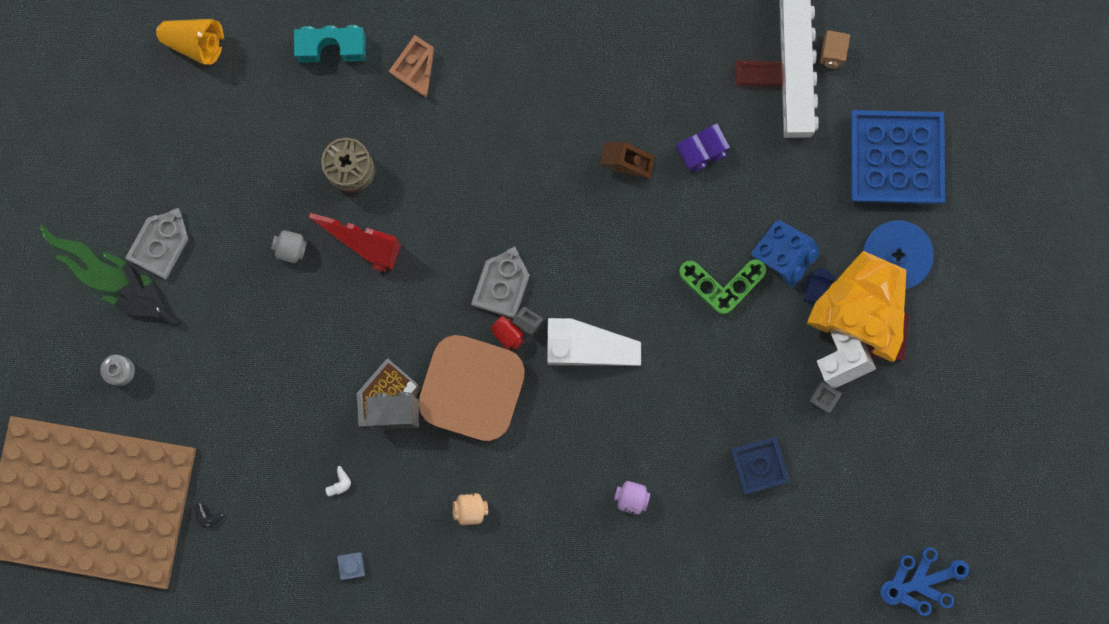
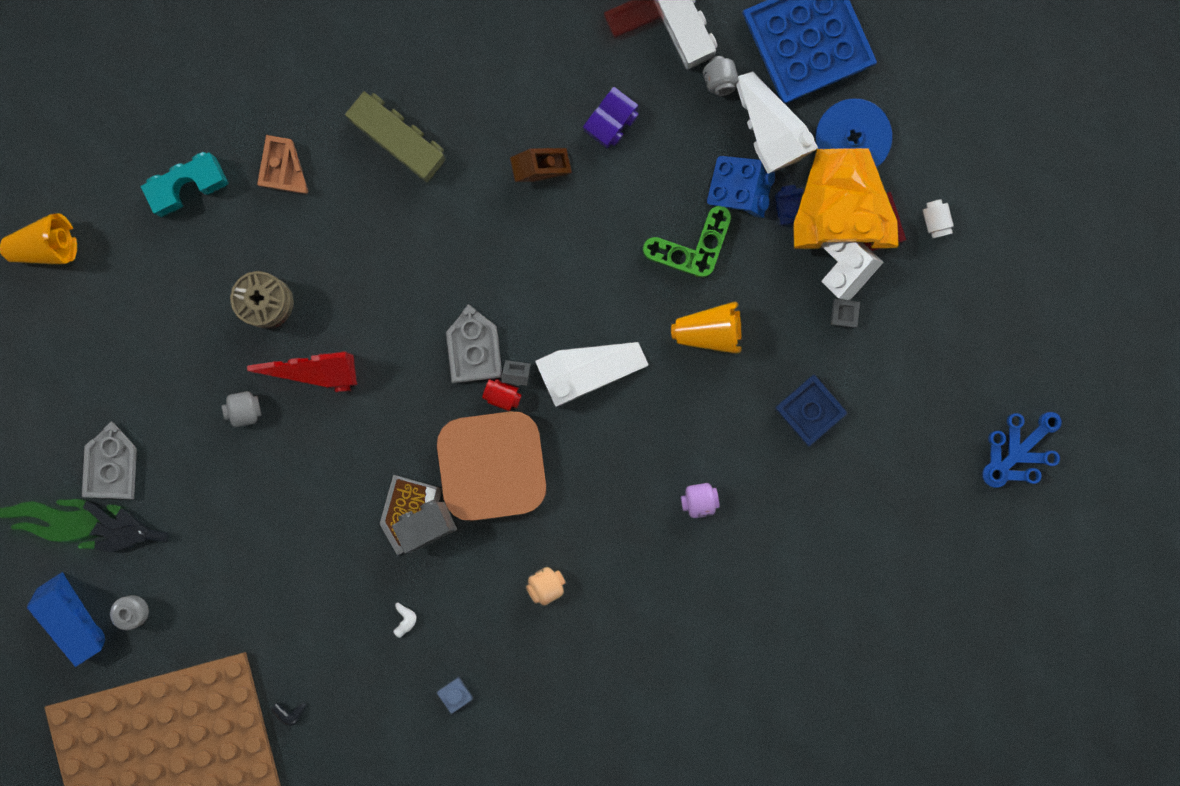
camera: 25 degrees left, 5 degrees up
(64, 352) = (66, 619): none -> blue wedge
(519, 84) = (395, 136): none -> olive brick
(706, 358) = (710, 329): none -> light orange cone
(809, 155) = (720, 76): none -> light grey head
(836, 221) = (778, 131): none -> white wedge
(939, 354) = (938, 218): none -> white brick

